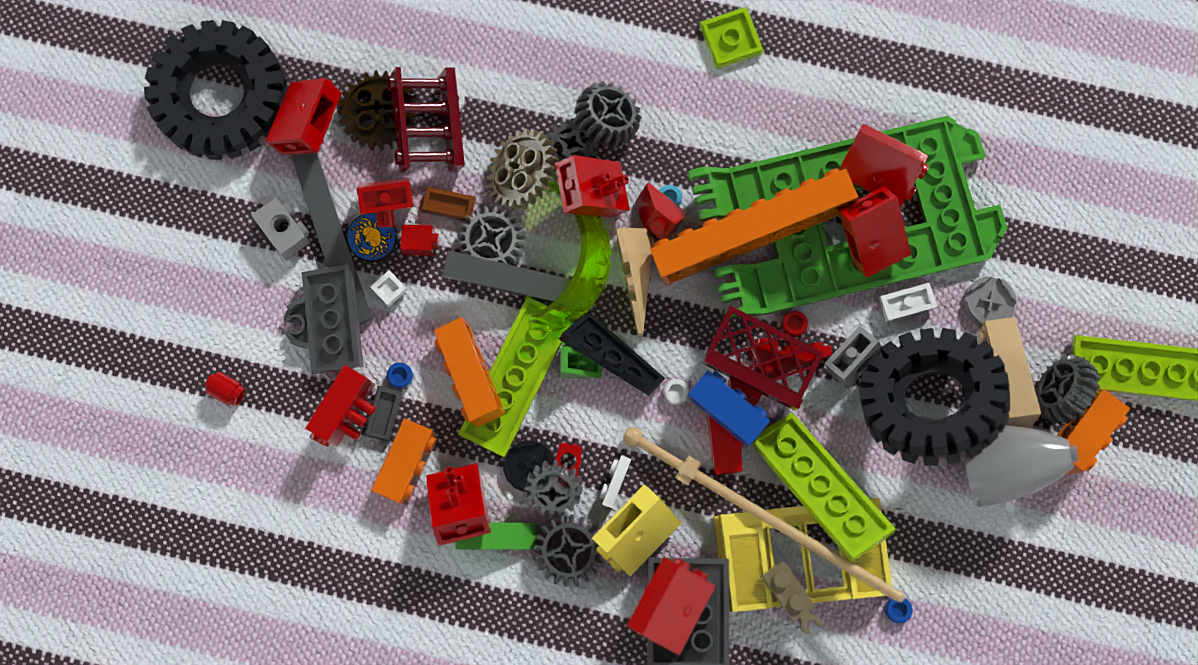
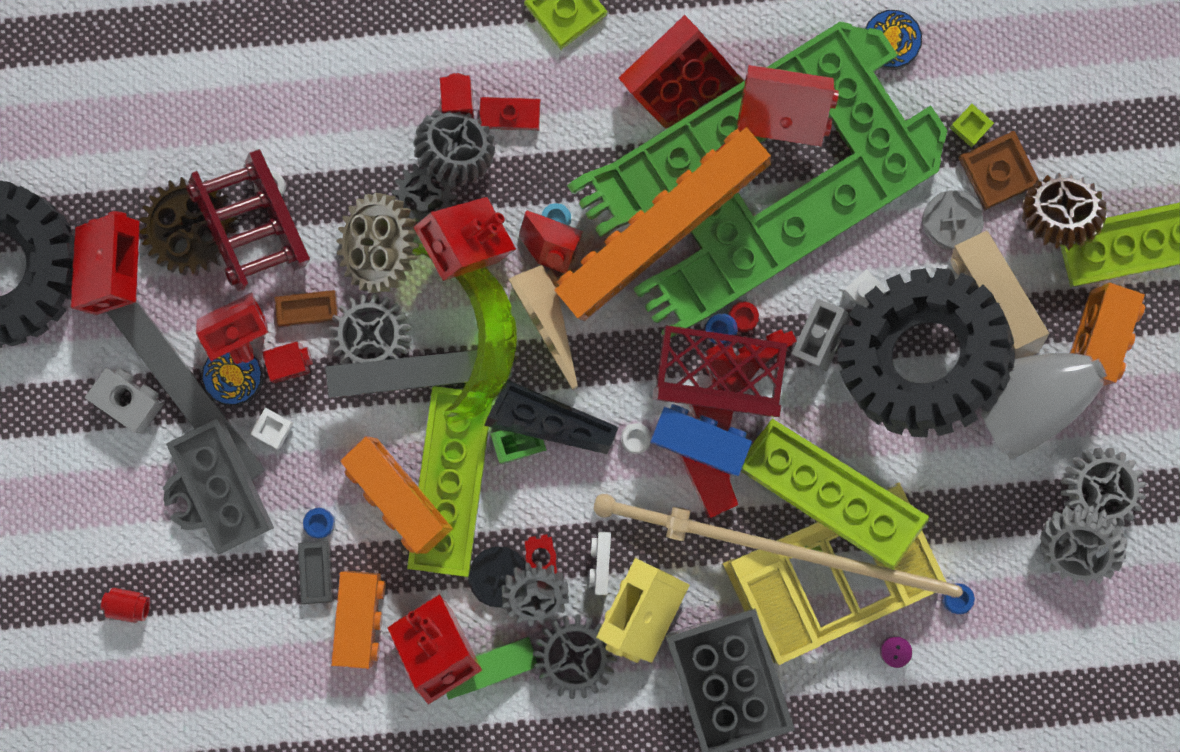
camera: 20 degrees left, 5 degrees up
(341, 408) = (265, 585): red piece -> none
(623, 75) = (457, 94): none -> red brick
(660, 104) = (510, 113): none -> red plate
(671, 604) = (709, 684): red piece -> none
(775, 321) = (722, 324): none -> blue tile
(790, 595) = (836, 625): dark tan plate -> none
(805, 115) = (679, 74): none -> red wedge
(833, 636) = (896, 651): none -> magenta tile
(875, 231) = (801, 186): red piece -> none
(898, 329) = (862, 286): none -> white plate
(907, 302) = (862, 251): white plate -> none
(994, 142) = (902, 33): none -> tile
(1009, 610) = (1087, 536): none -> light grey gear
(1028, 231) = (971, 125): none -> lime plate
(1040, 274) = (998, 170): none -> dark orange tile
(1063, 545) = (1116, 468): none -> light grey gear
(1067, 389) = (1068, 294): dark grey gear -> none
(1083, 322) = (1066, 206): none -> reddish brown gear

